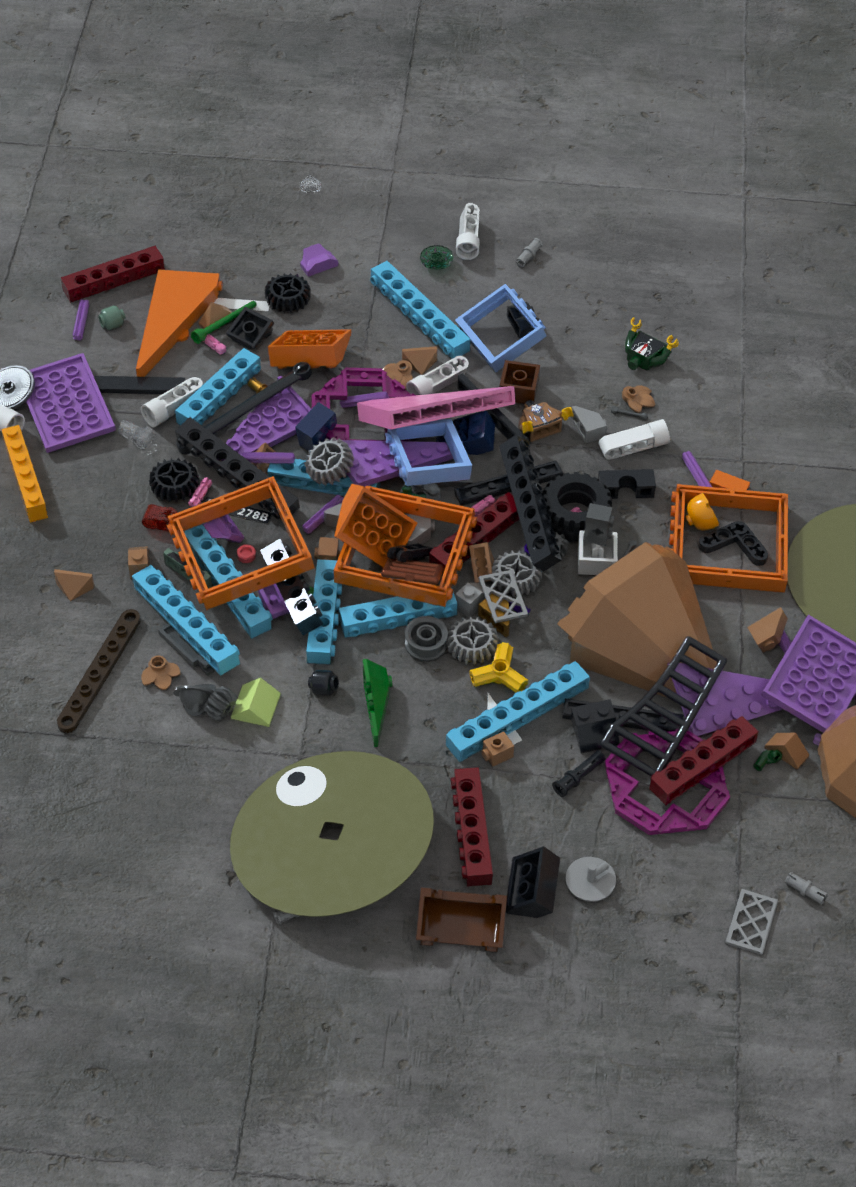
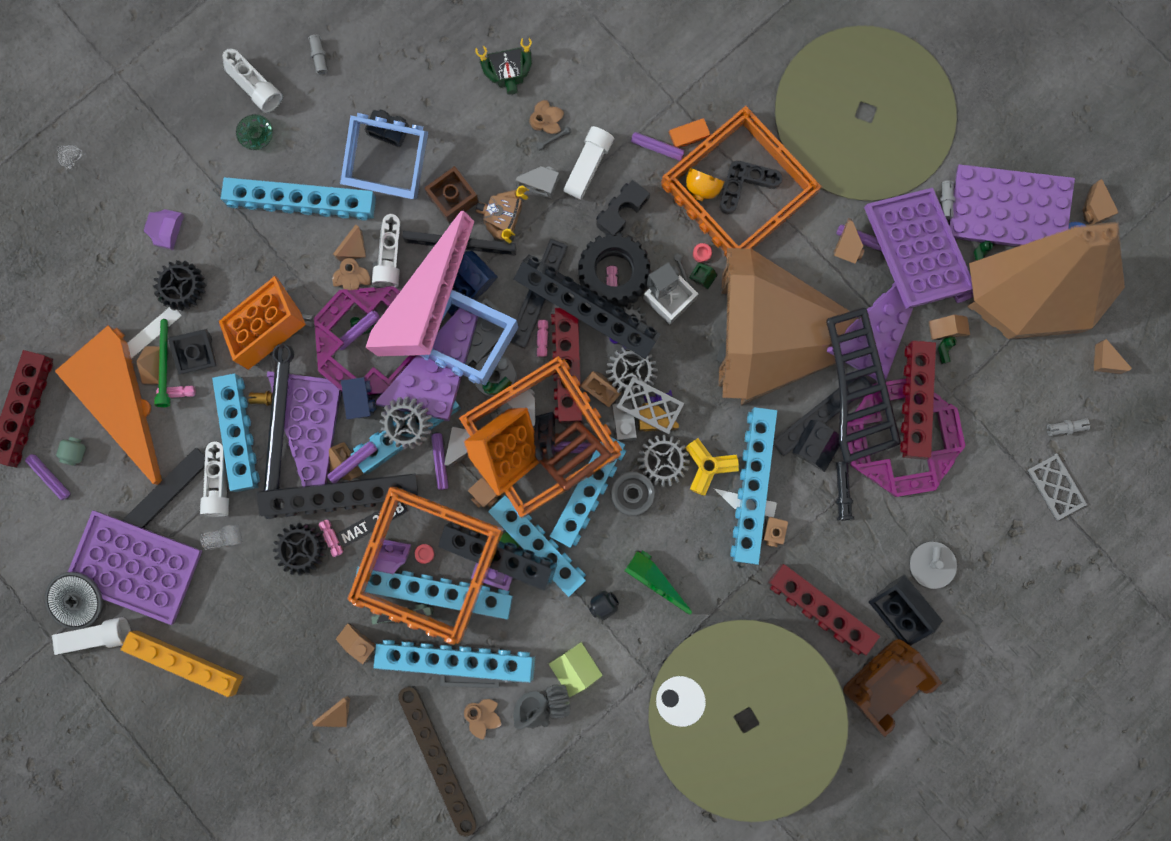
camera: 45 degrees left, 30 degrees up
(157, 517) = (327, 594): clear red piece -> none

